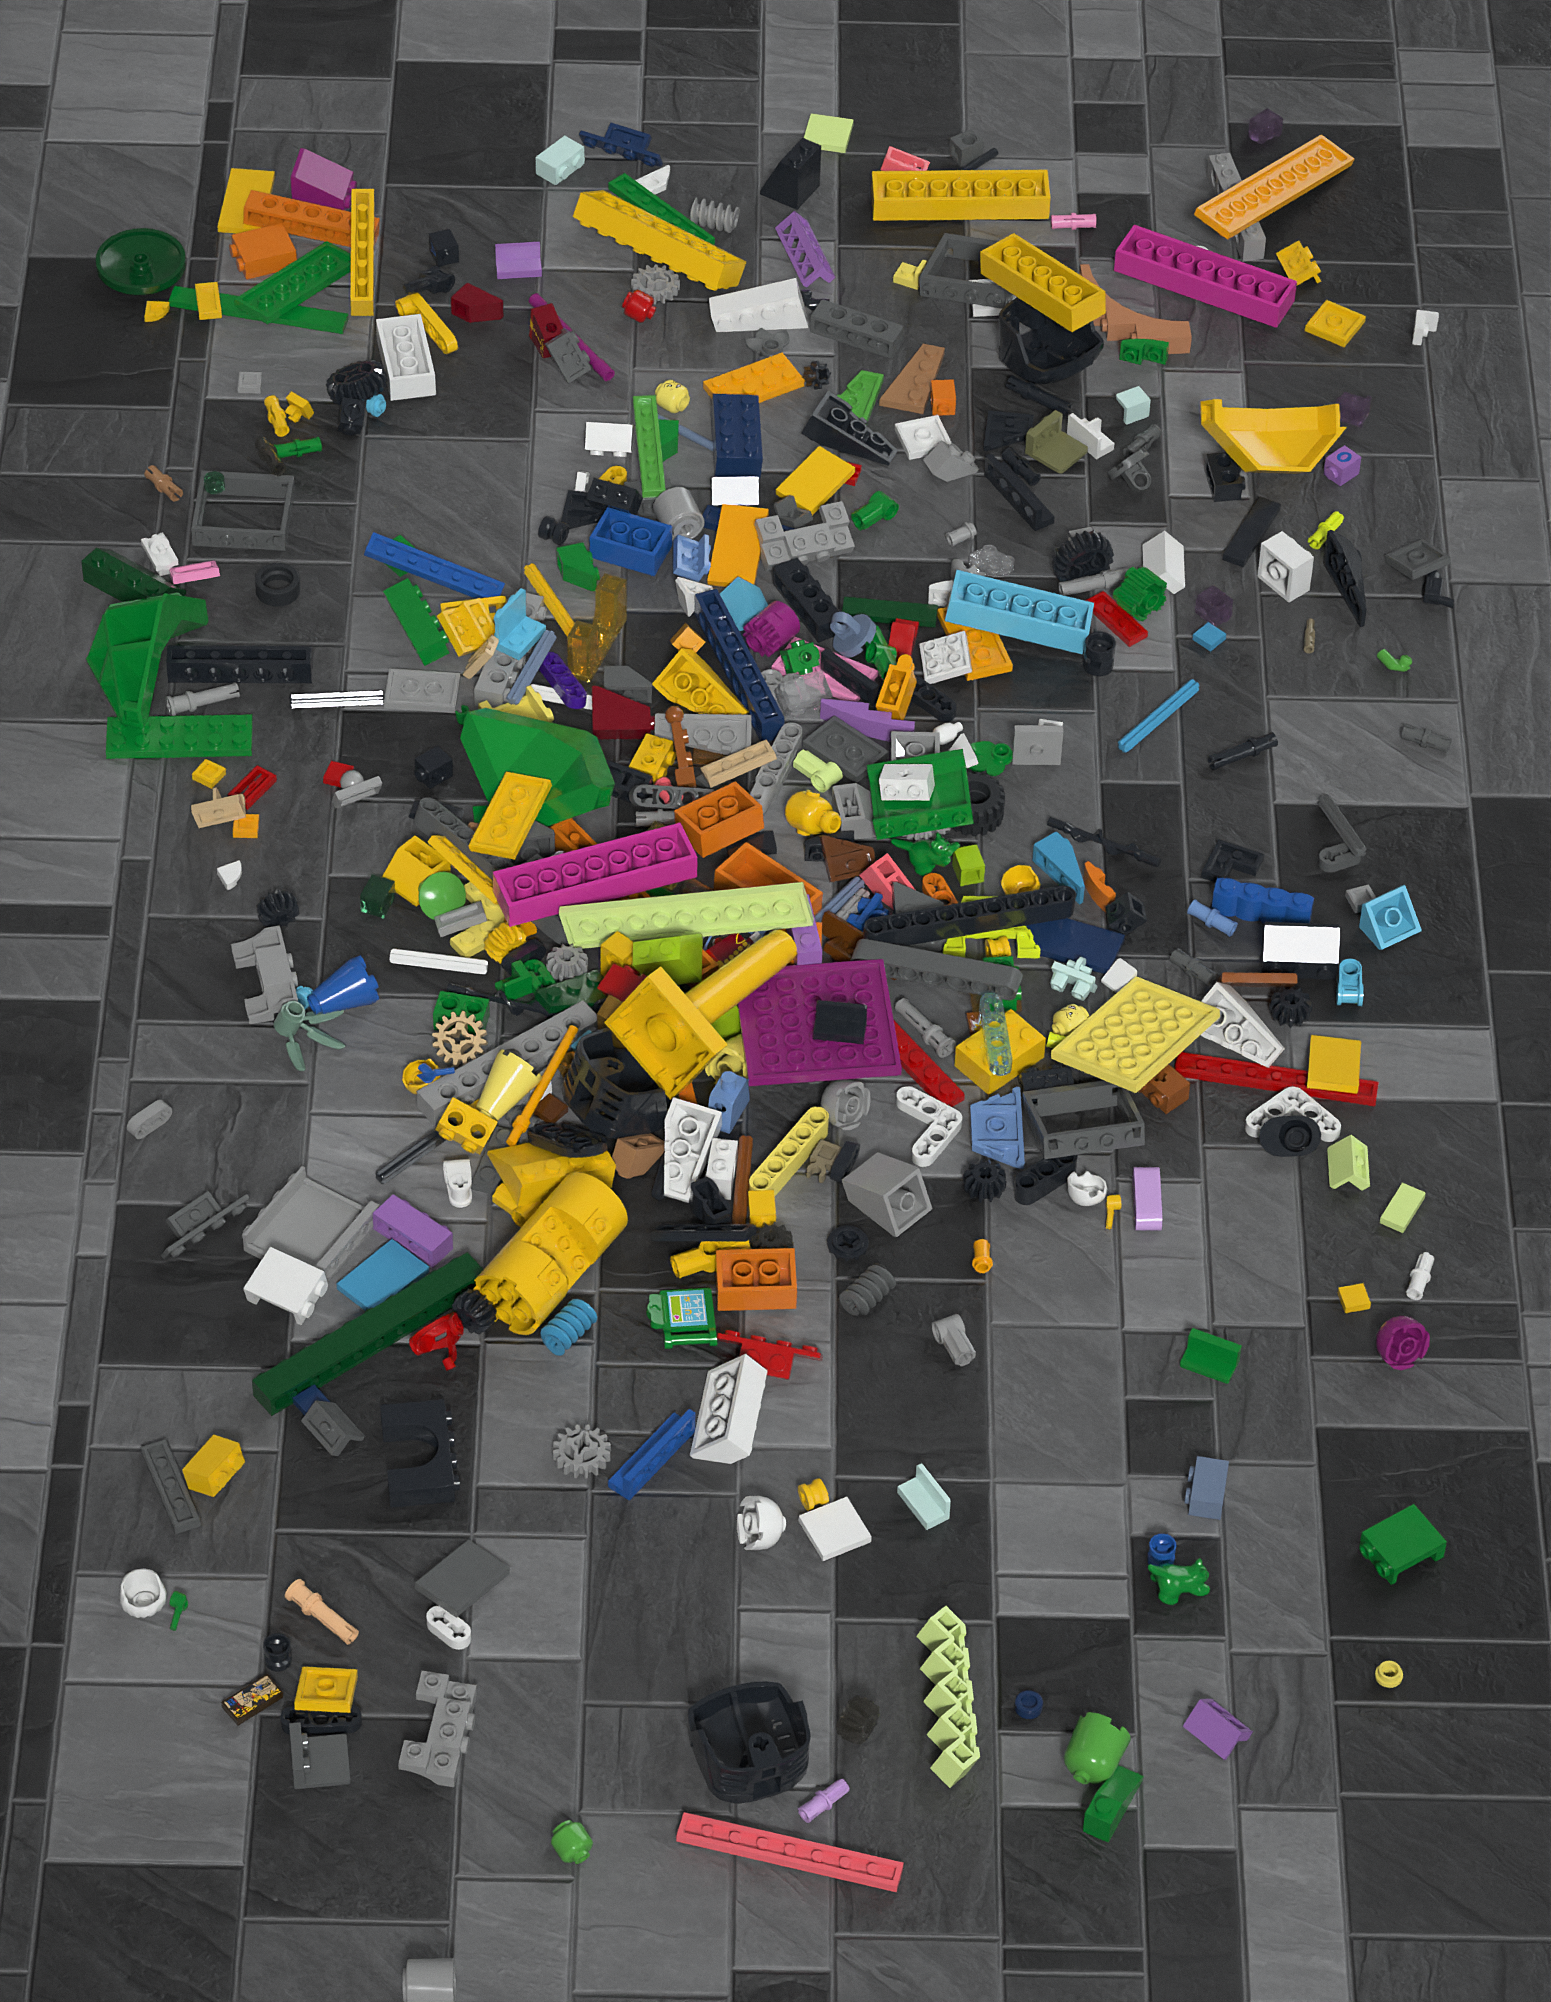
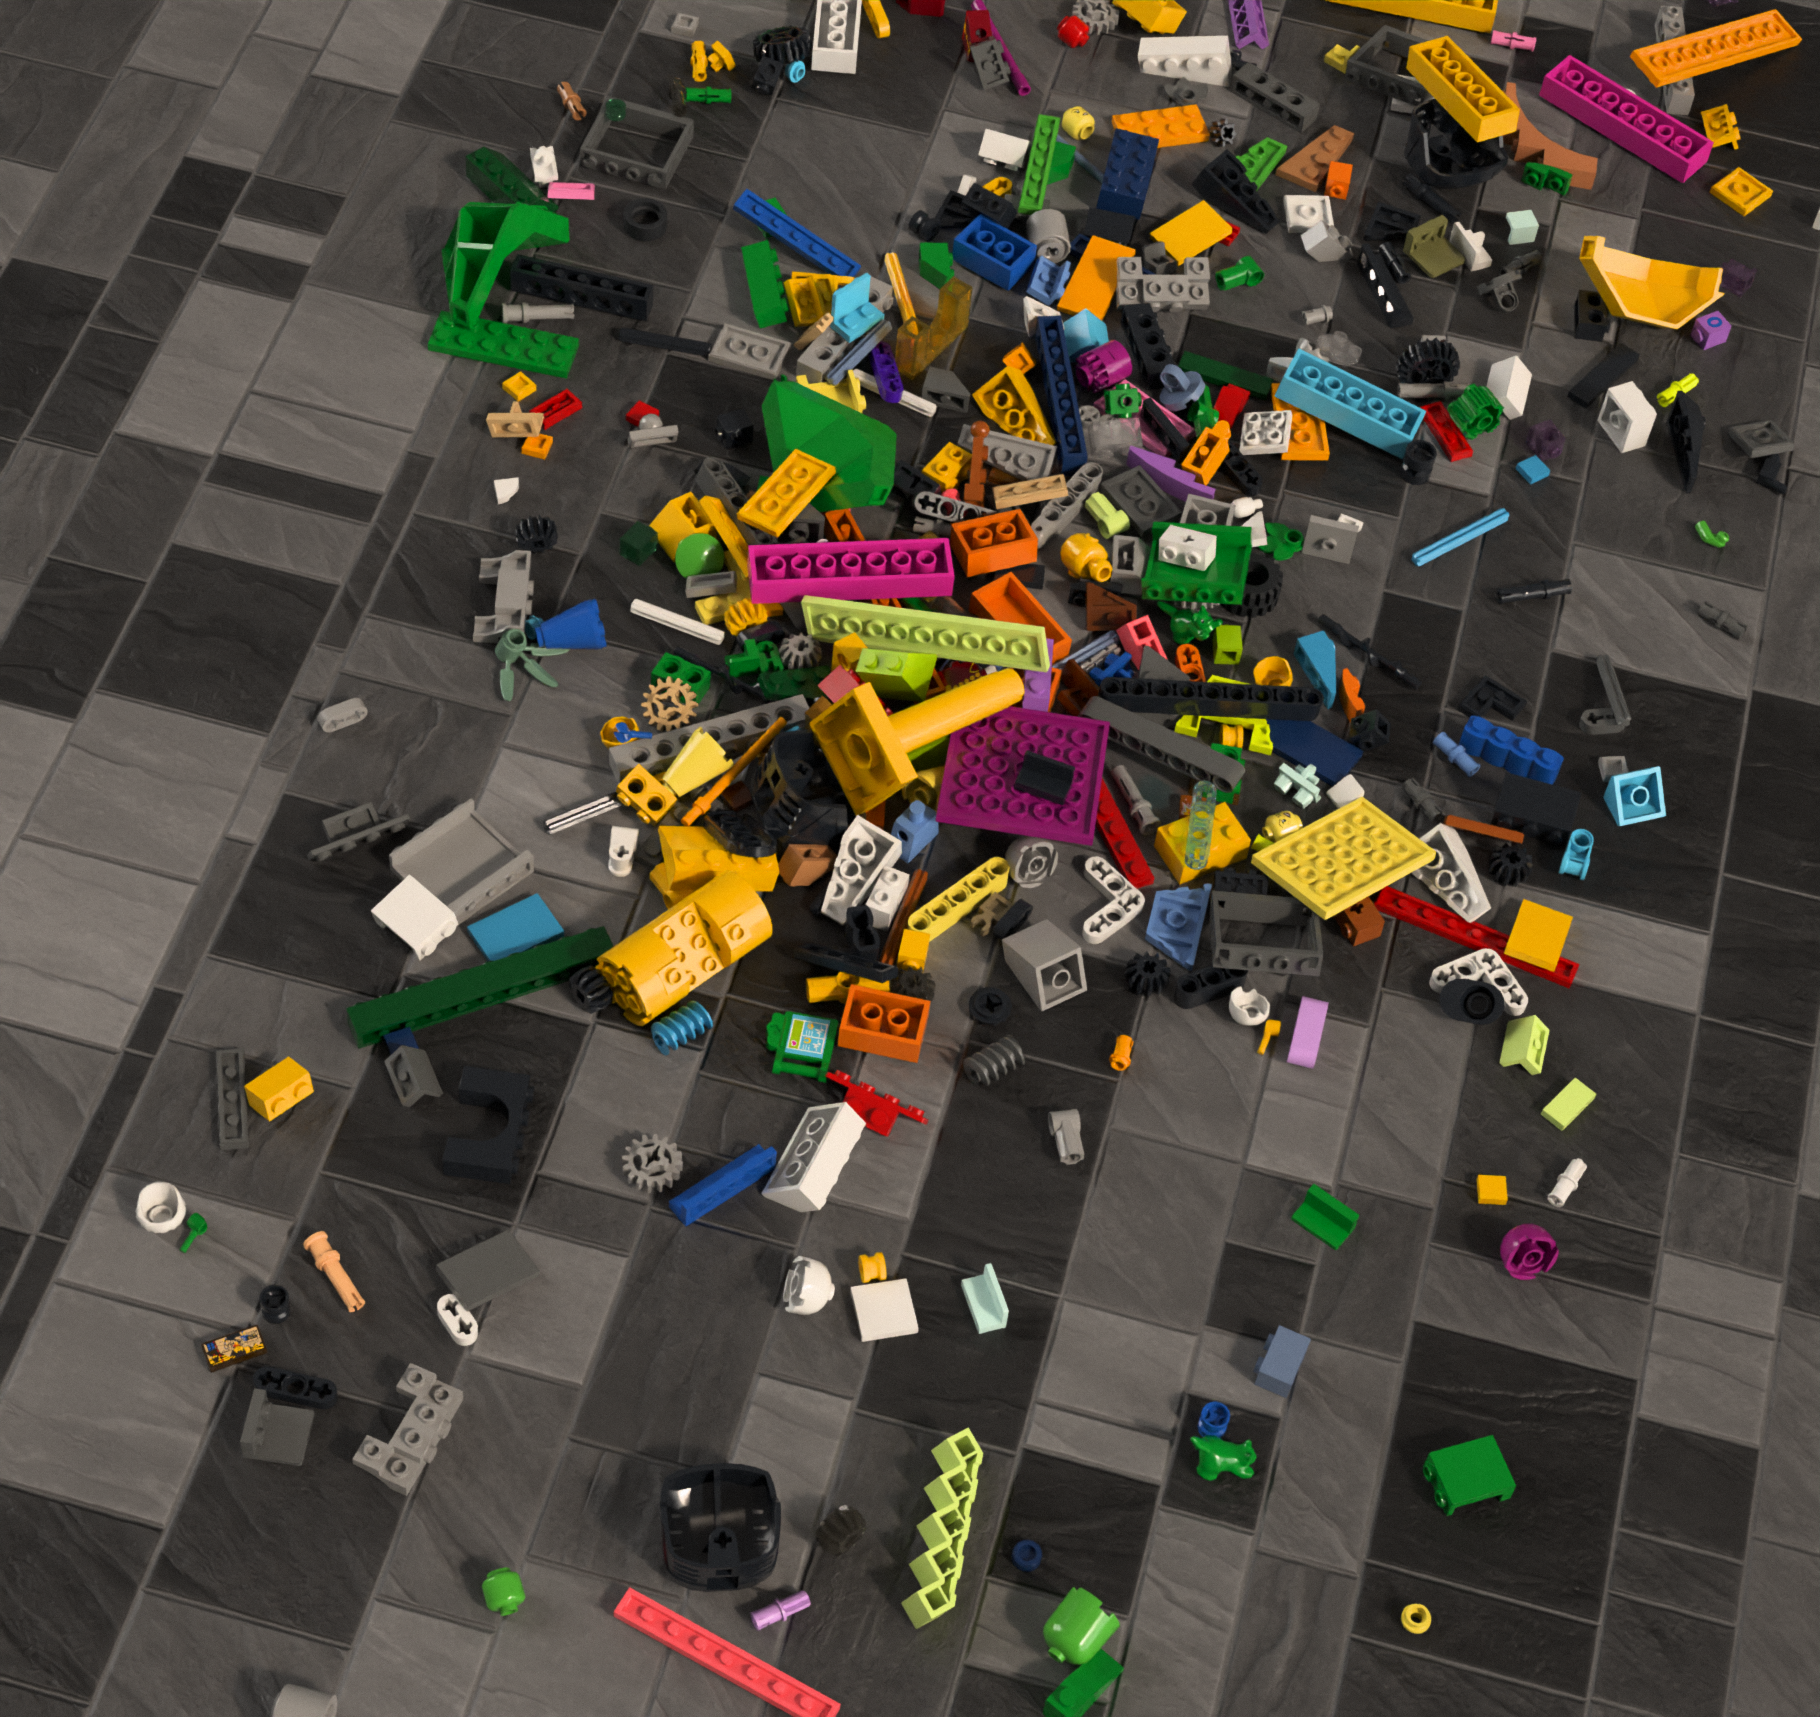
camera: 10 degrees right, 5 degrees up
(326, 1689) = (310, 1357): yellow tile -> none
(413, 1230) = (560, 890): medium lavender brick -> none
(425, 1341) = (536, 1005): red helmet -> none
(619, 716) = (928, 419): dark red slope -> none
(1216, 1727) = (1216, 1632): medium lavender panel -> none
(1309, 640) = (1633, 491): dark tan pin -> none

